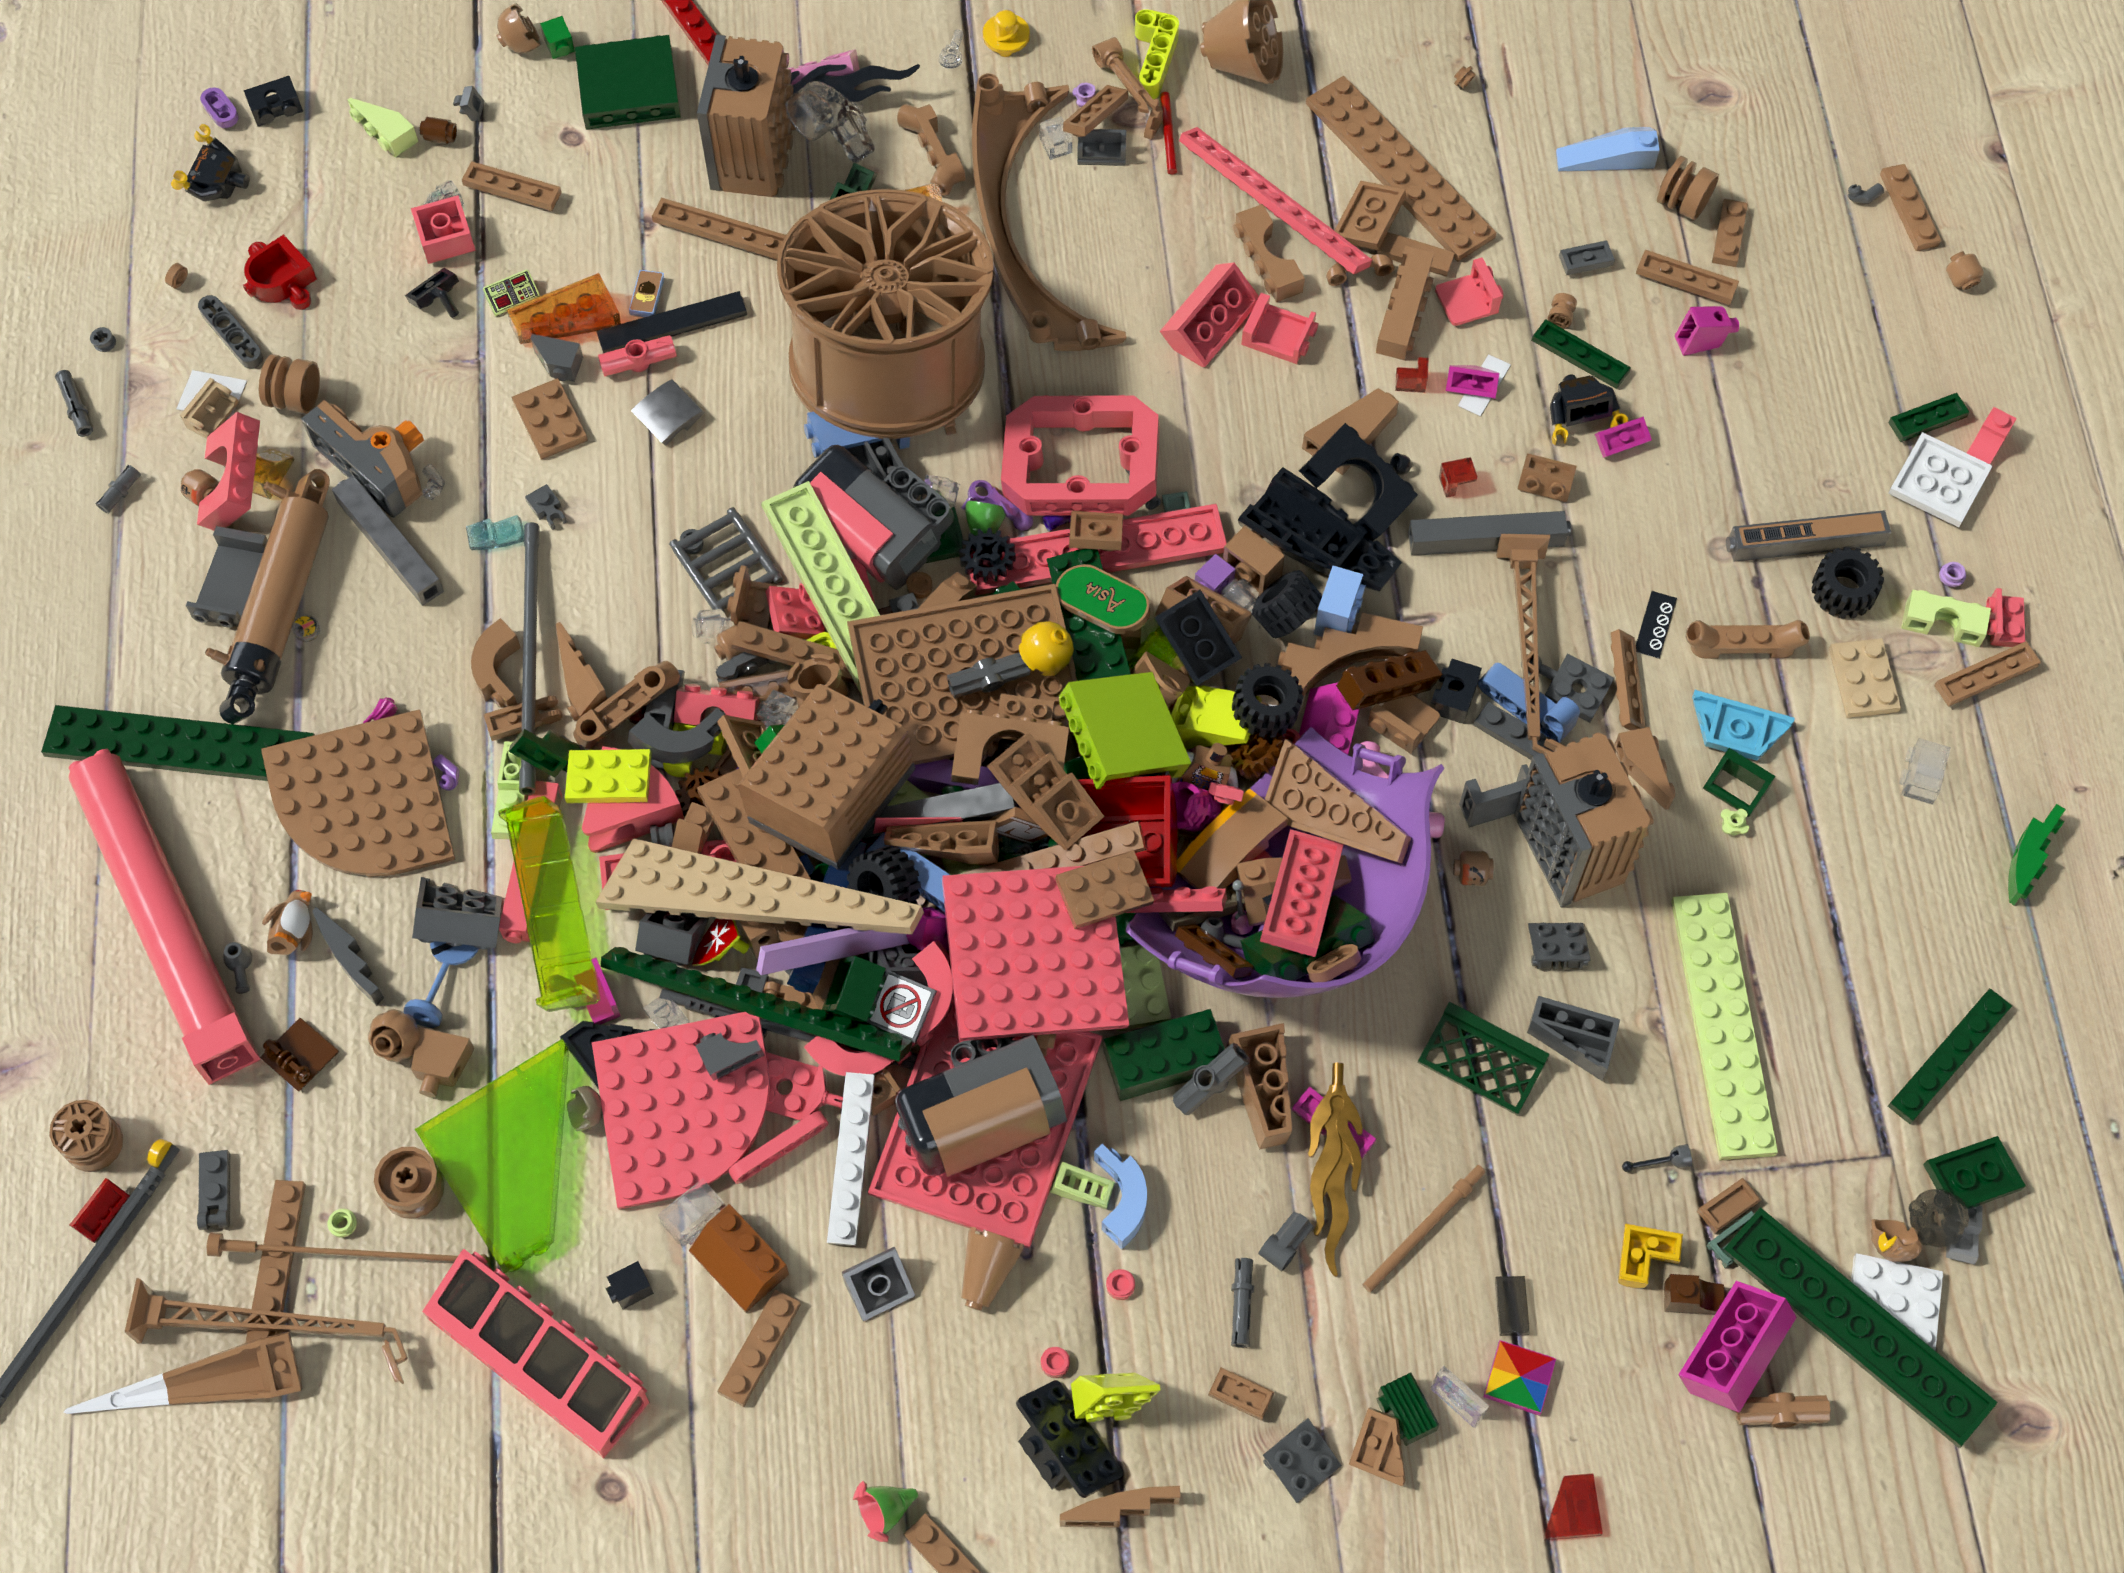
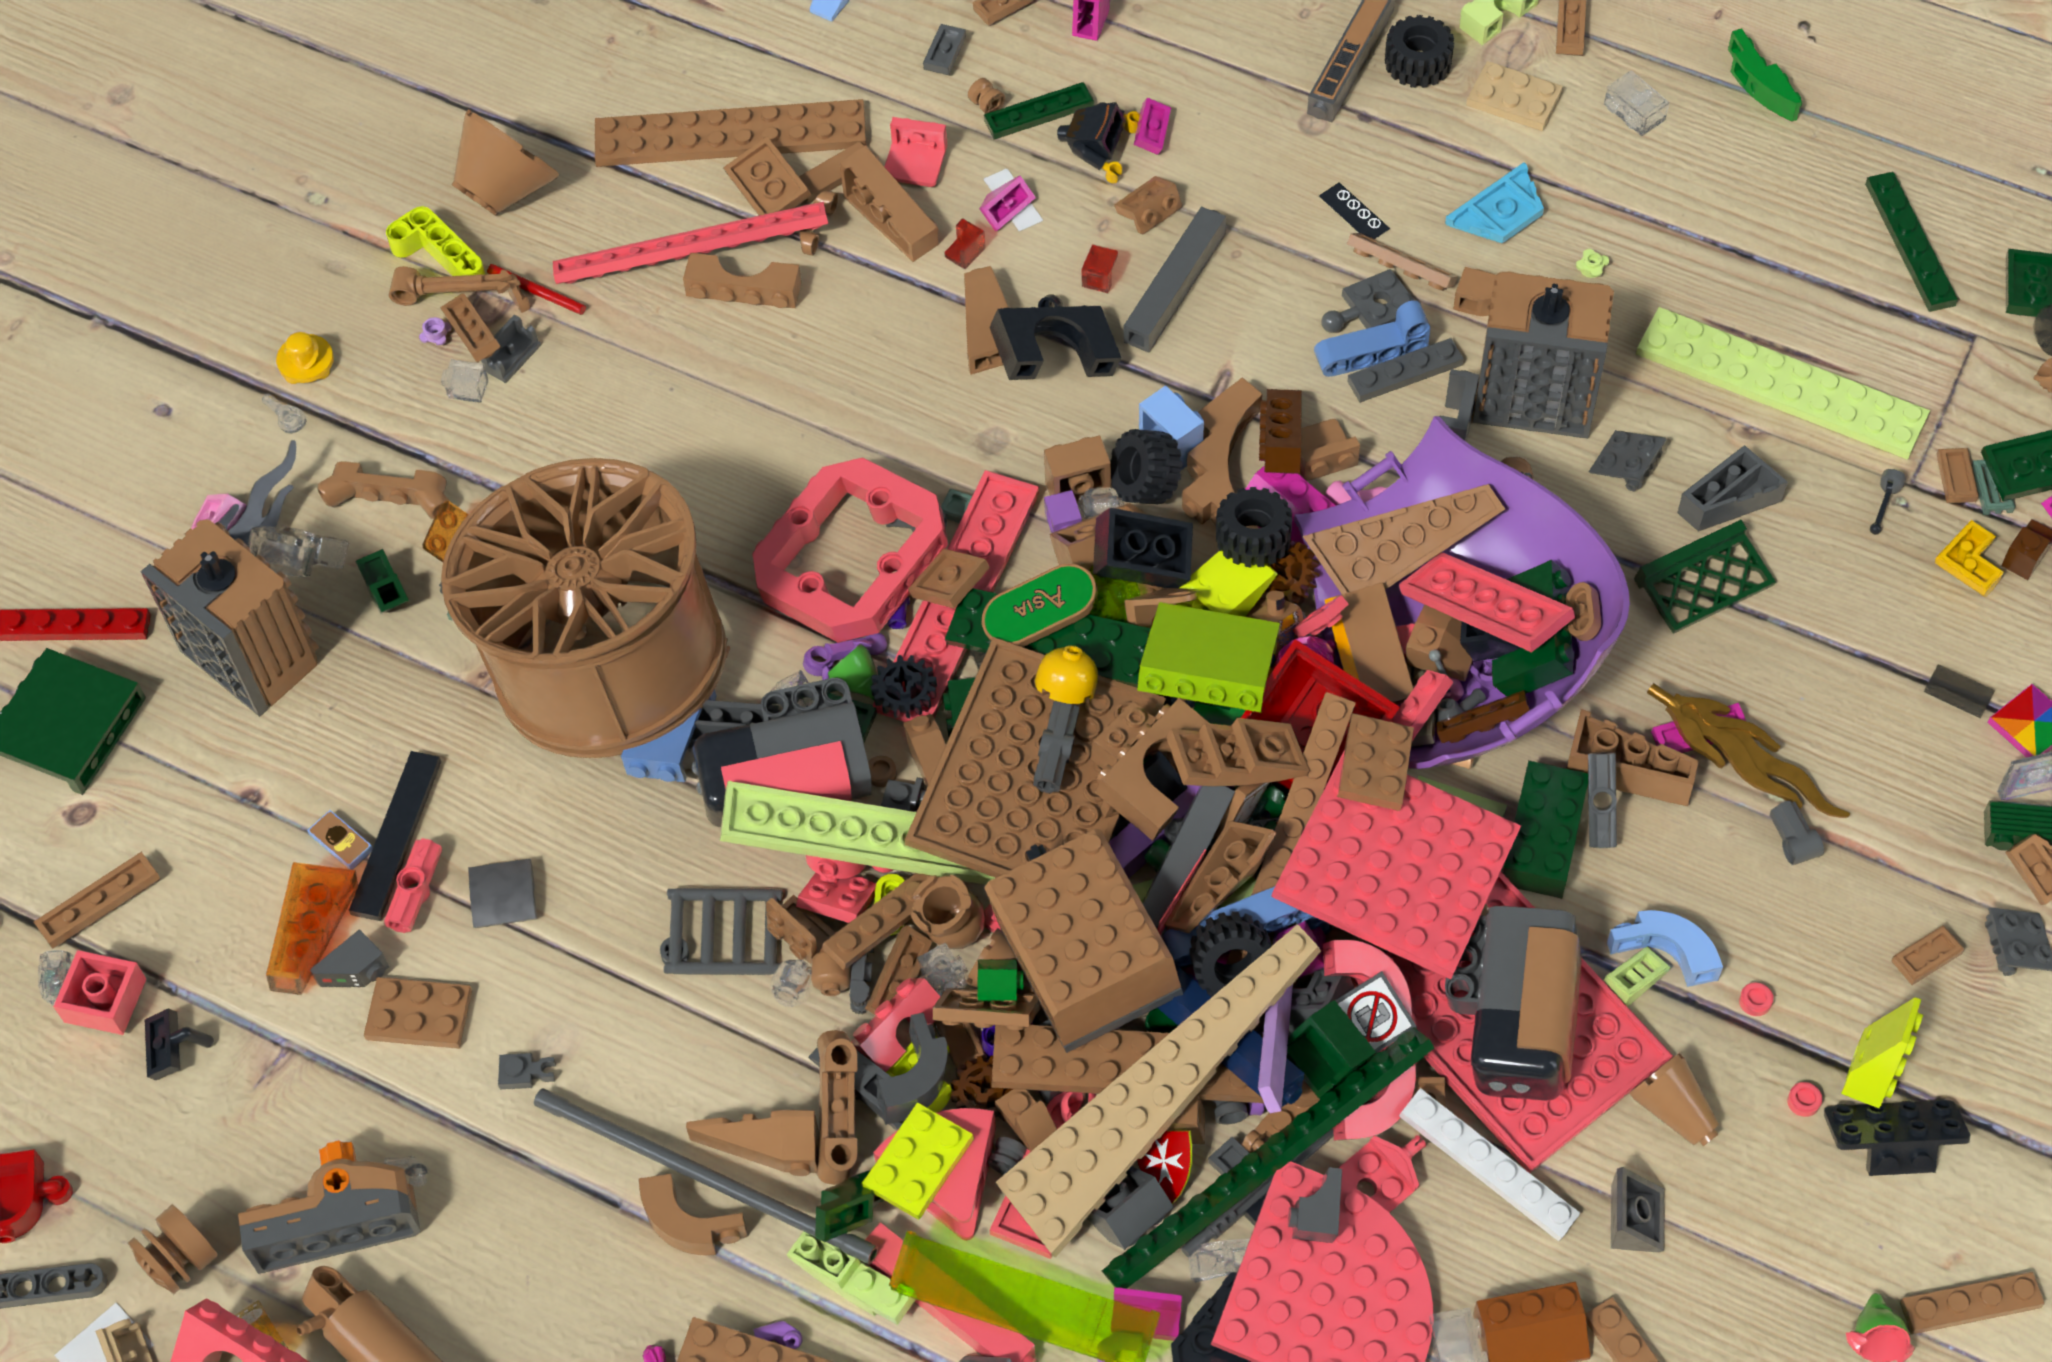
camera: 55 degrees left, 5 degrees down
(387, 540) = (445, 1250): flat silver brick -> none
(492, 535) = (520, 1138): clear light blue slope -> none
(508, 720) = (763, 1231): medium nougat hinge -> none
(510, 292) = (232, 970): slope -> none
(718, 228) = (324, 726): medium nougat plate -> none
(778, 1147) = (1431, 1228): coral beam -> none
(998, 130) = (411, 411): medium nougat panel -> none
(1107, 1509) = (1987, 1125): medium nougat slope -> none
(1211, 314) = (771, 363): coral slope -> none
(1242, 1291) = (1835, 904): dark grey pin -> none
(1278, 331) = (833, 320): coral panel -> none
(1316, 533) = (1066, 410): black wedge -> none
(1461, 1189) = (1825, 667): medium nougat bar -> none
(1464, 76) = (676, 29): medium nougat plate -> none
(1464, 679) = (1334, 395): black brick -> none
(1524, 554) = (1220, 263): medium nougat piece -> none
(1745, 771) = (1553, 226): dark green tile -> none
(1777, 640) = (1436, 135): medium nougat plate -> none

